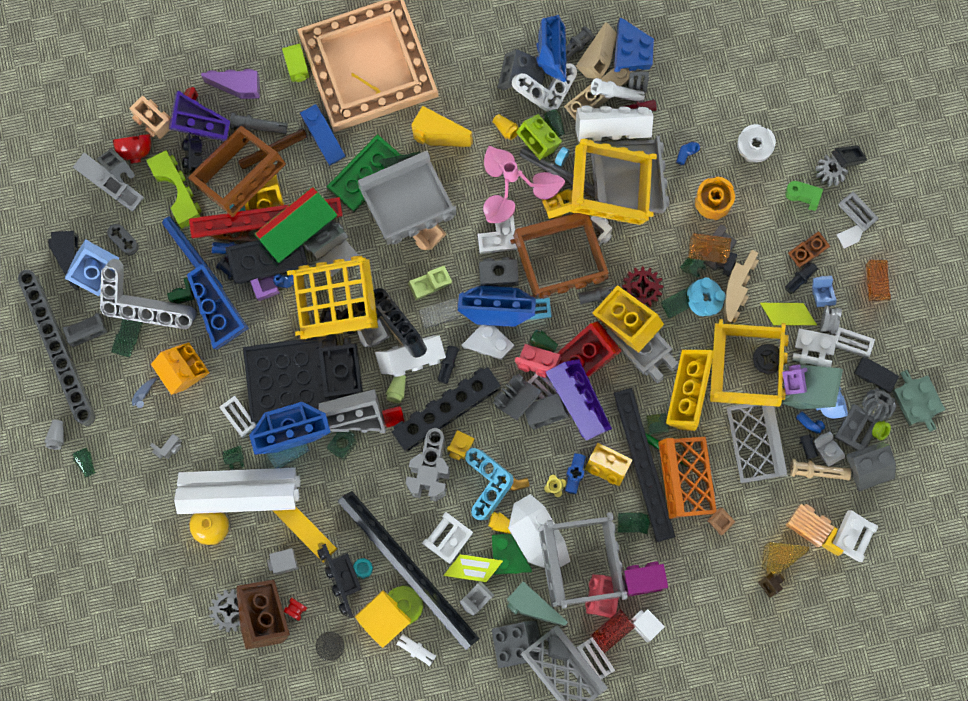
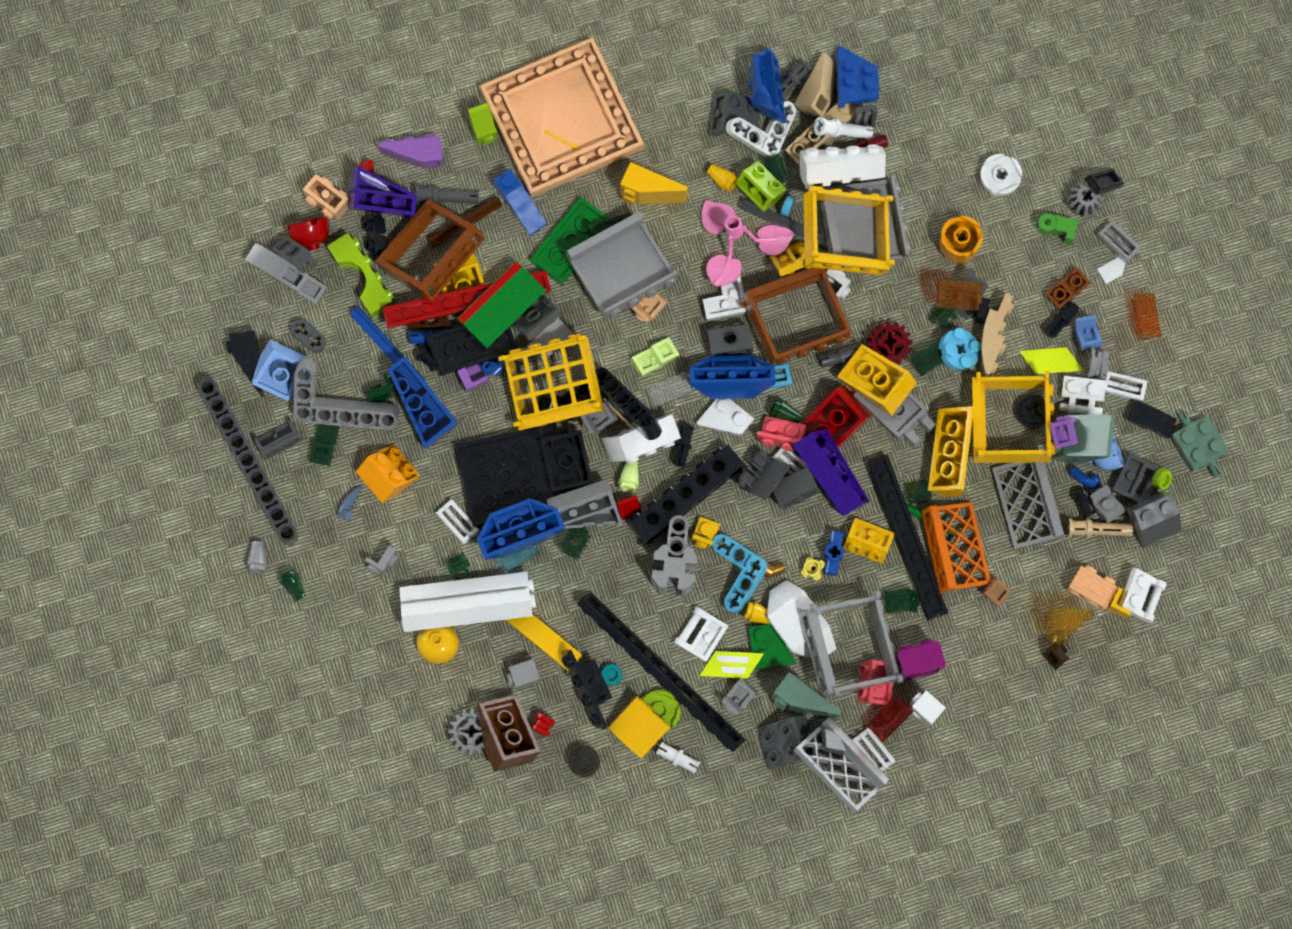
camera: 10 degrees left, 0 degrees up
(687, 150) = (924, 189): blue arm -> none
(879, 404) = (1157, 451): dark grey gear -> none

